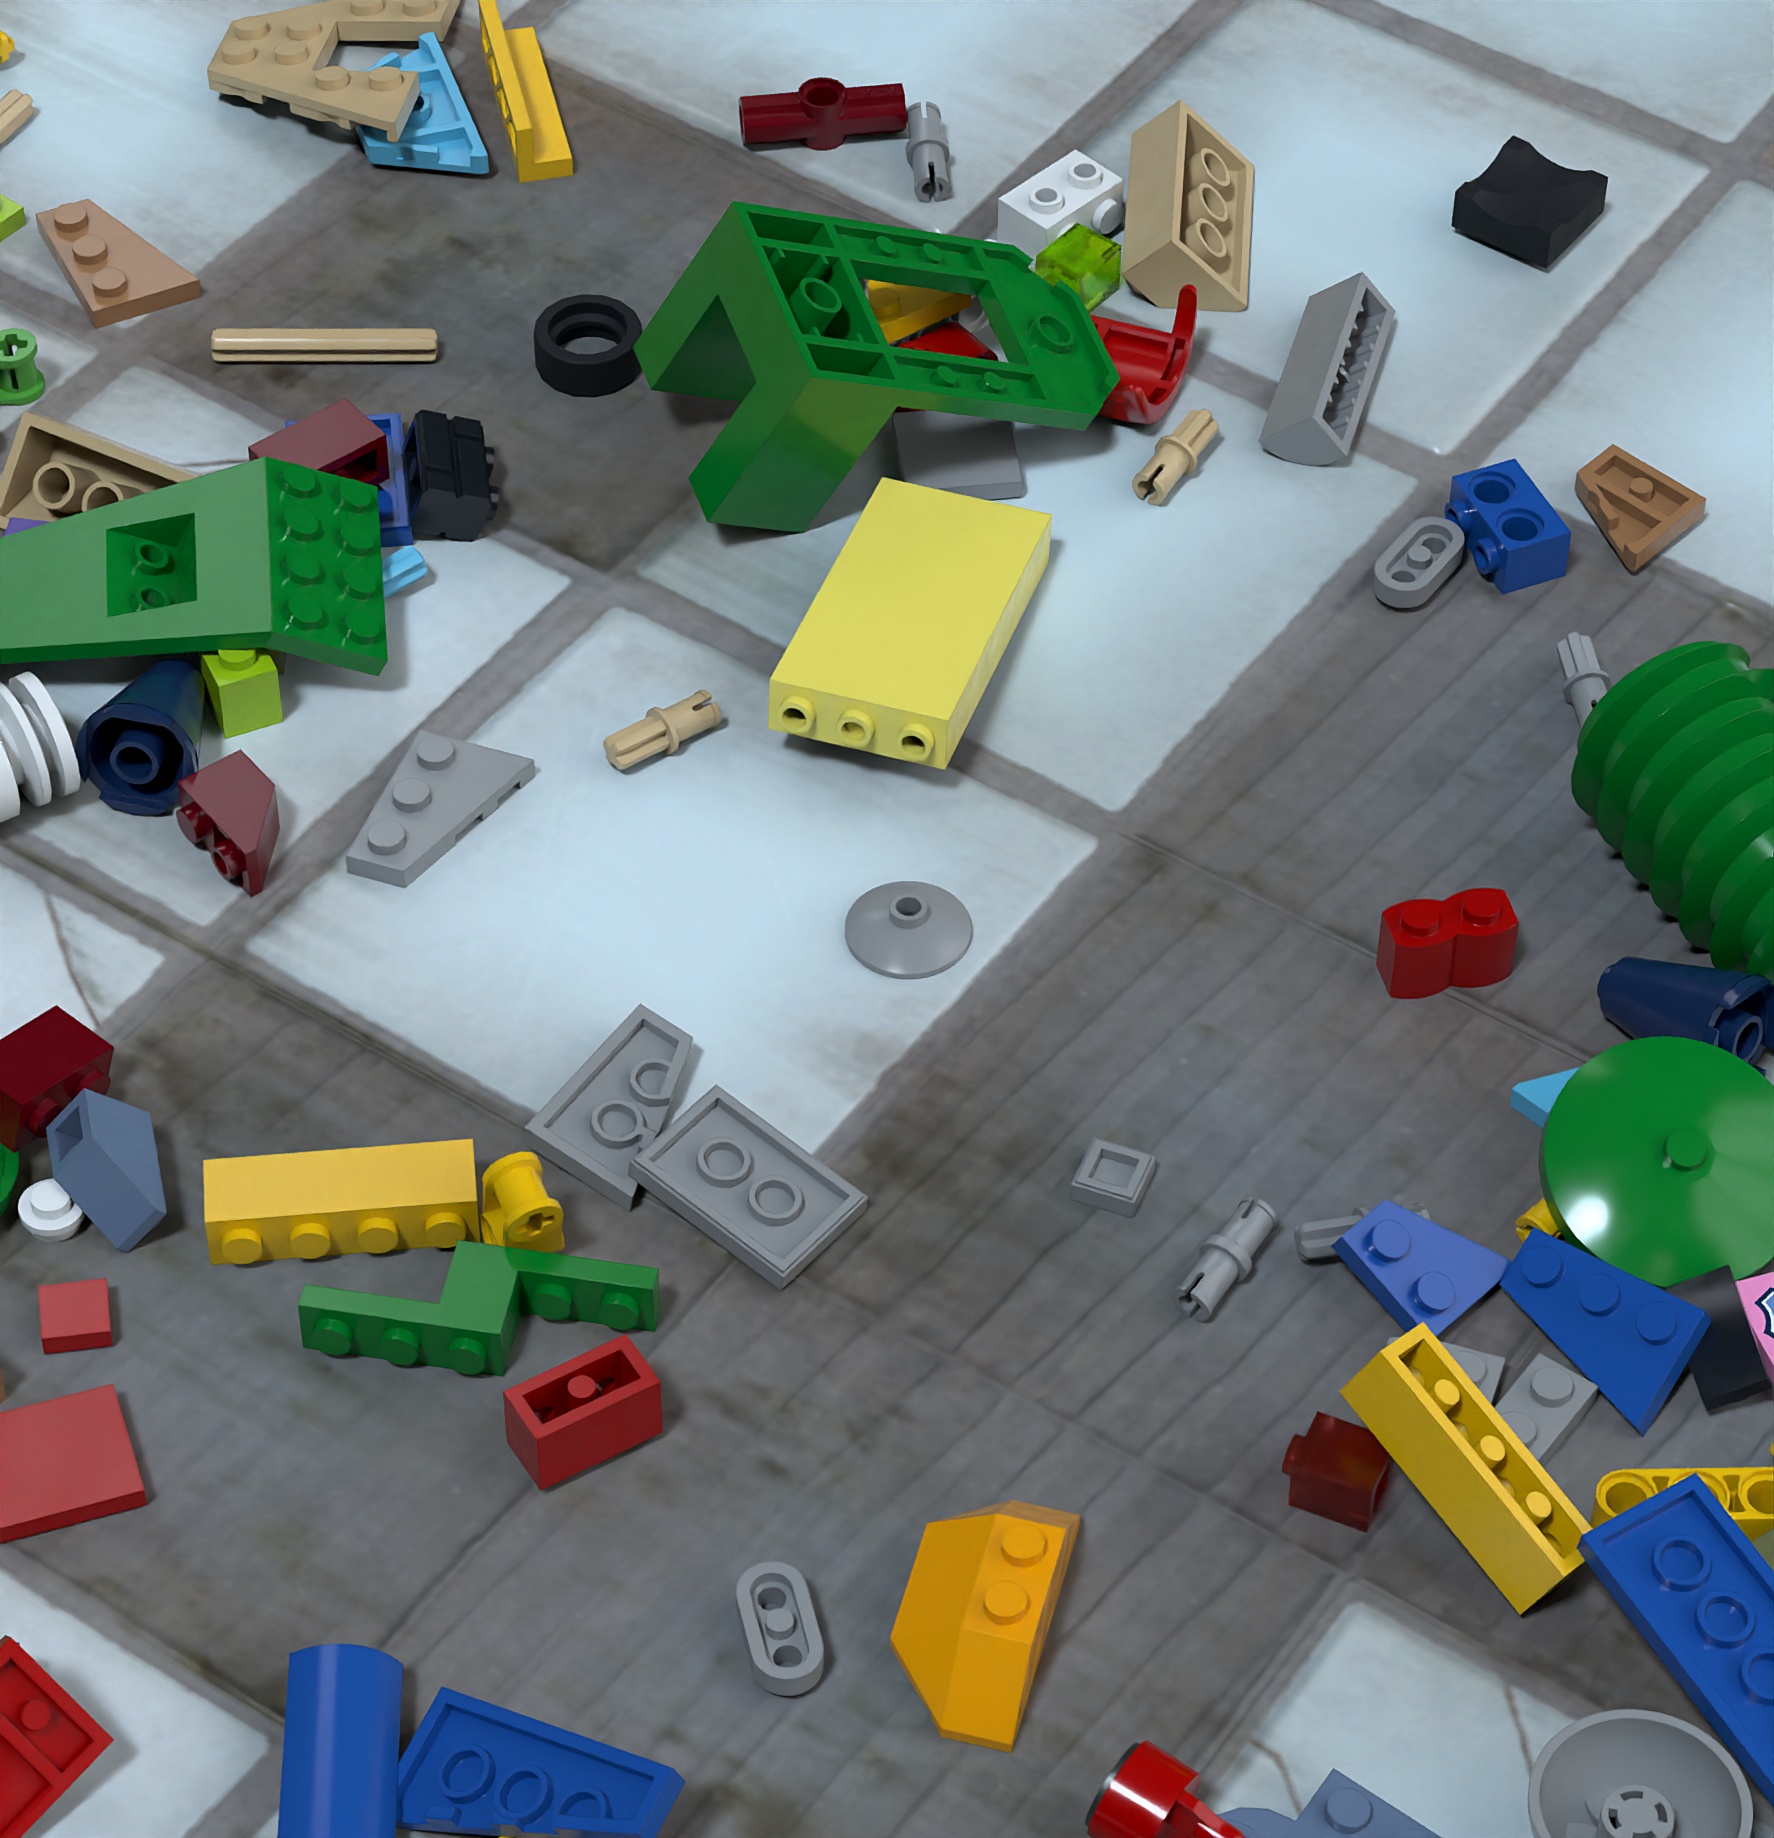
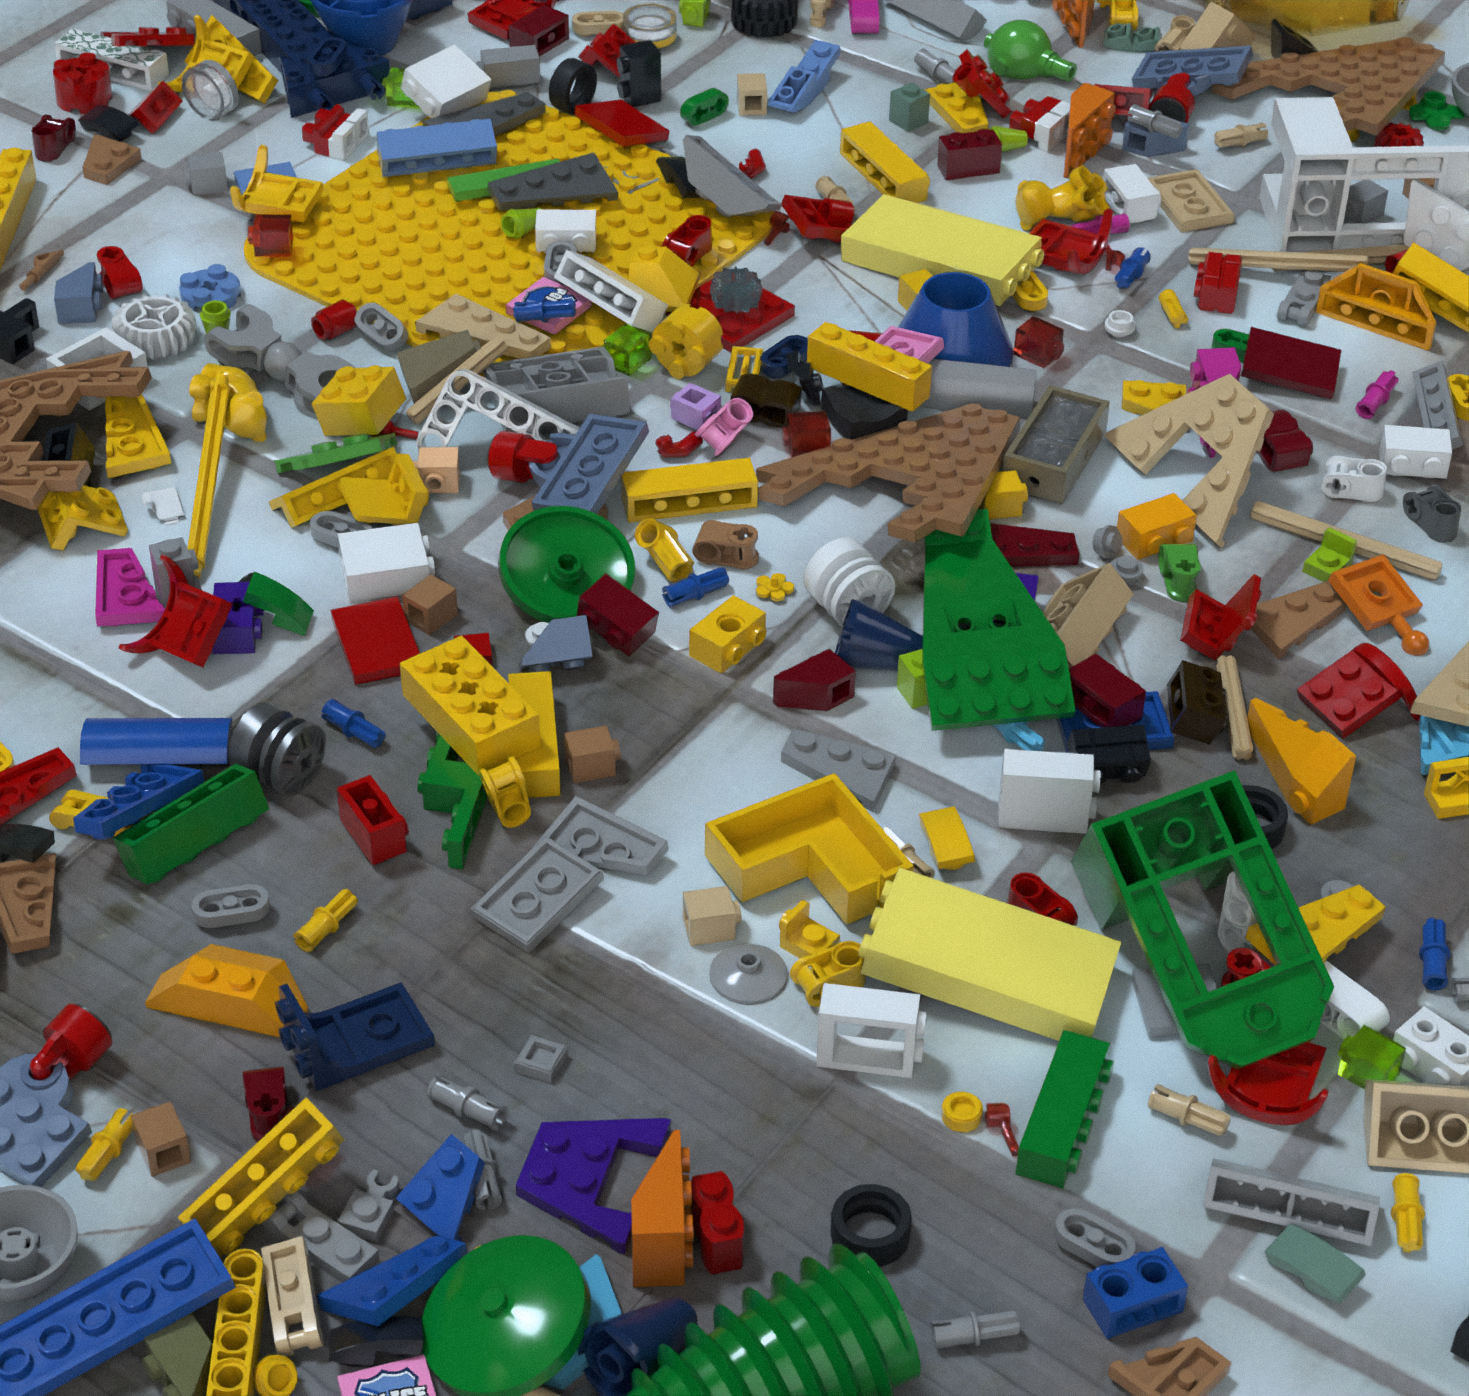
camera: 90 degrees right, 5 degrees down
(91, 935) = (727, 634): none -> yellow brick
(102, 158) = (1373, 611): none -> orange plate
(139, 313) = (1215, 626): none -> red bracket
(281, 1485) = (352, 723): none -> blue axle
(308, 204) = (1357, 689): none -> red piece
(323, 367) = (1196, 702): none -> dark brown brick
(328, 1246) = (470, 704): none -> yellow brick
(395, 1562) = (278, 747): none -> flat silver wheel
(400, 1107) = (591, 754): none -> medium nougat brick
(483, 274) = (1306, 764): none -> light orange wedge
(552, 537) = (1047, 791): none -> white brick
(578, 1679) = (191, 824): none -> green brick
(636, 668) = (947, 838): none -> yellow slope
(648, 817) = (811, 834): none -> yellow piece
(780, 581) = (1034, 895): none -> red piece
(805, 958) = (710, 915): none -> tan brick
(809, 1484) = (324, 920): none -> yellow axle
(839, 849) = (803, 935): none -> yellow bracket
(864, 196) = (1434, 954): none -> blue axle
(929, 814) = (833, 966): none -> yellow piece
(1077, 755) = (874, 1009): none -> white window
(1097, 1413) = (353, 1035): none -> dark blue bracket
(1185, 691) = (962, 1111): none -> yellow tile
(1187, 574) = (1063, 1109): none -> green brick
(1200, 648) = (999, 1116): none -> clear red hand
(1244, 1528) = (265, 1099): none -> dark red piece
(1323, 272) = (1407, 1212): none -> yellow axle
(1339, 1131) = (572, 1166): none -> dark purple wing
(1347, 1665) = (161, 1138): none -> medium nougat brick
(1362, 1751) = (105, 1146): none -> yellow axle
(1414, 818) = (877, 1200): none -> black tyre
(1432, 360) = (1316, 1261): none -> sand green slope
(1458, 986) = (661, 1222): none -> orange slope
(1648, 1441) = (291, 1296): none -> tan plate

